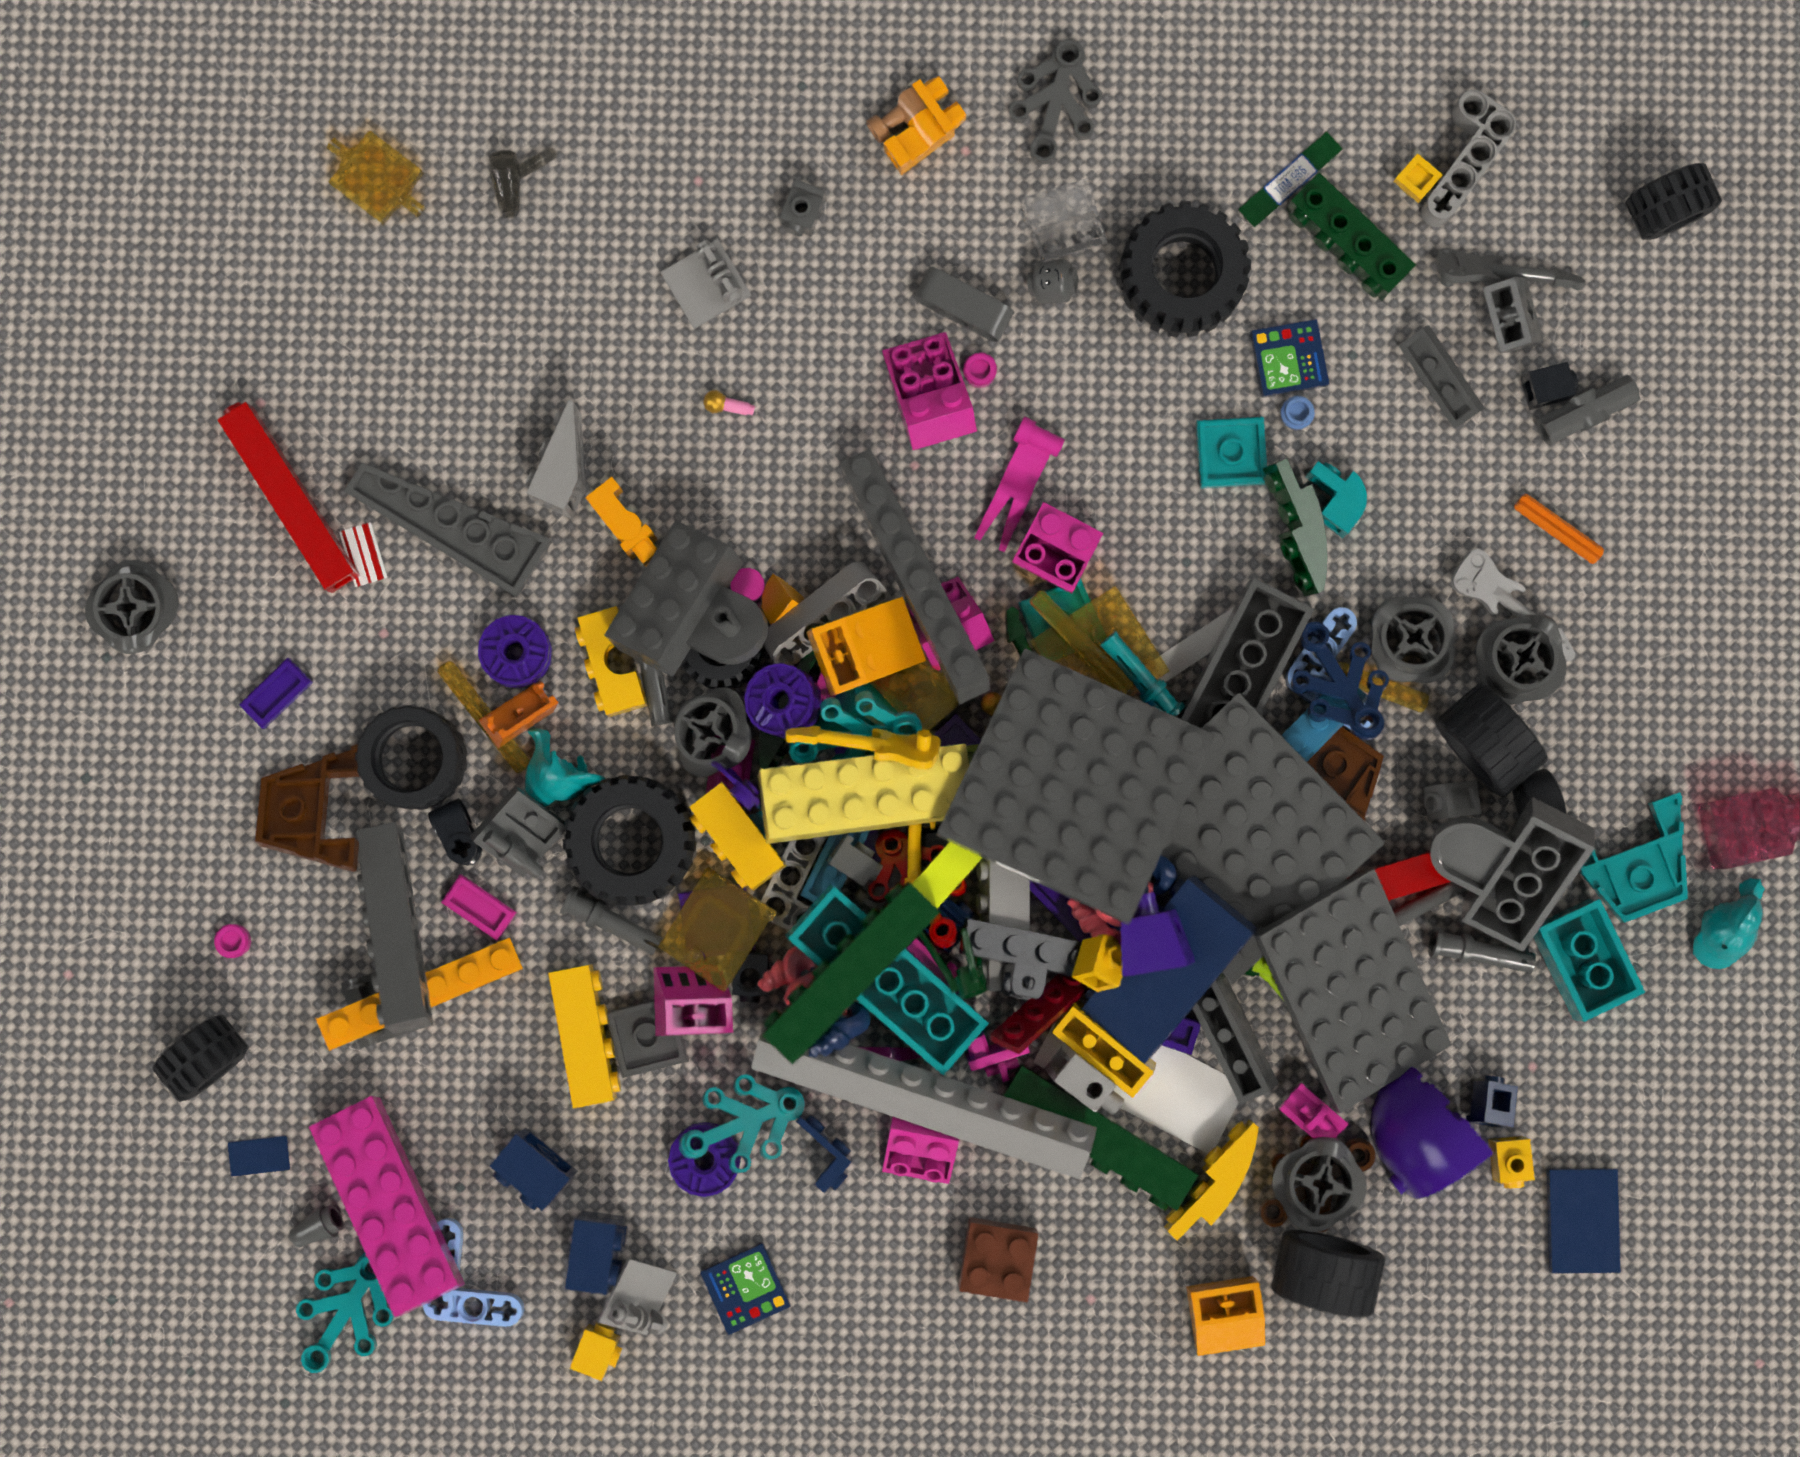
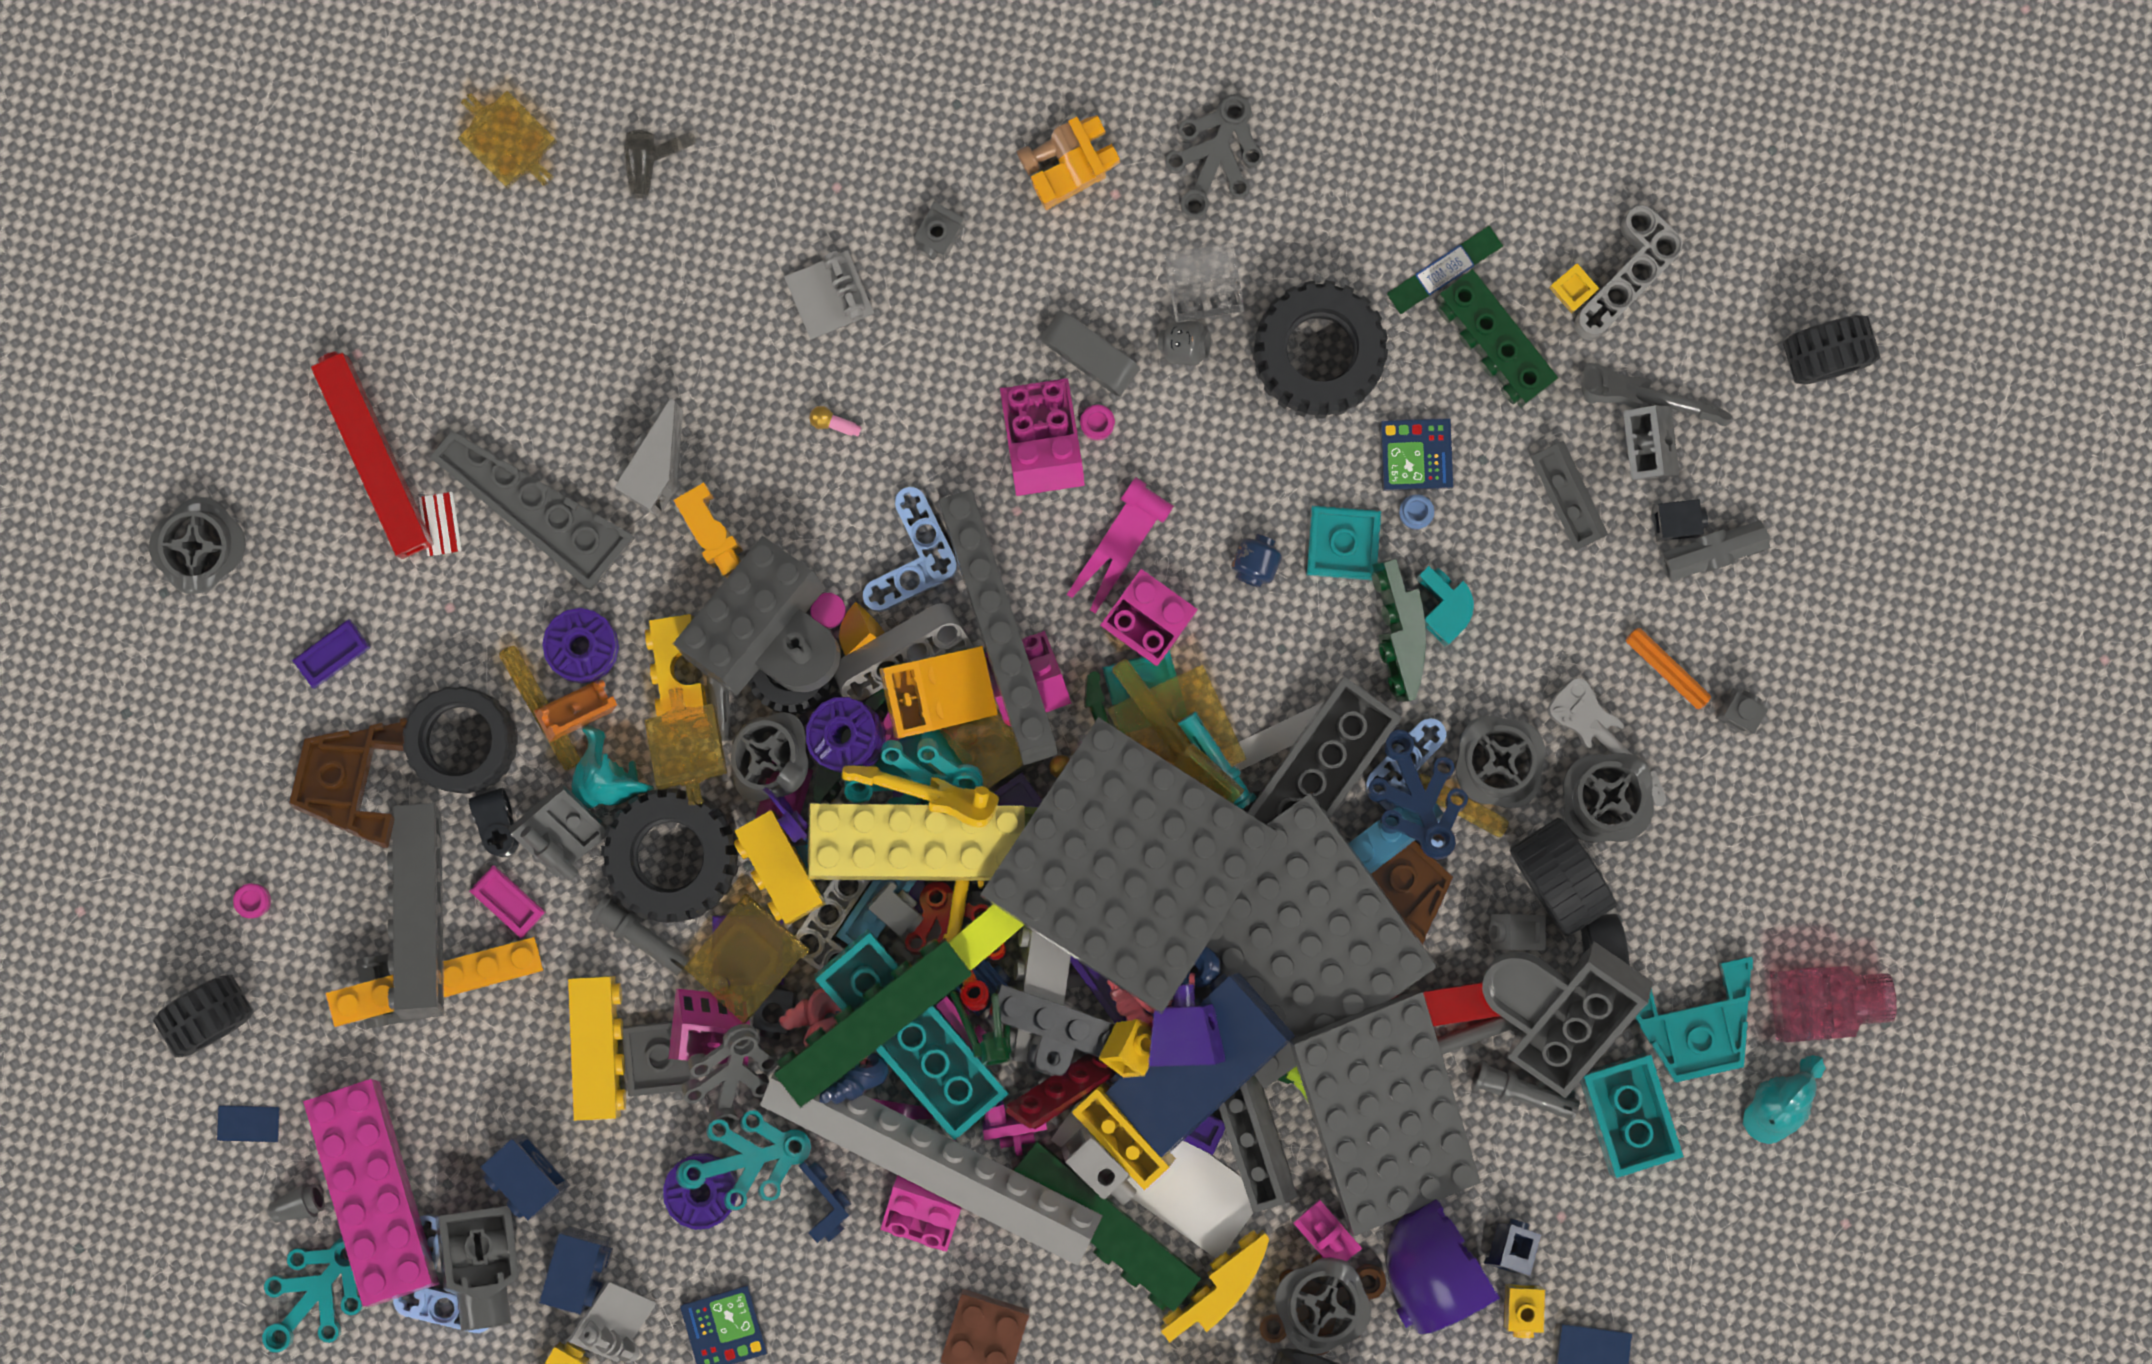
camera: 10 degrees right, 0 degrees up
(500, 1260) = (478, 1264): none -> dark grey brick
(630, 732) = (685, 746): none -> clear yellow plate
(721, 1011) = (737, 1044): none -> dark grey plant
(831, 530) = (922, 565): none -> light blue beam
(1133, 685) = (1205, 771): none -> clear yellow plate
(1151, 480) = (1256, 561): none -> dark blue head
(1636, 560) = (1742, 711): none -> dark grey brick

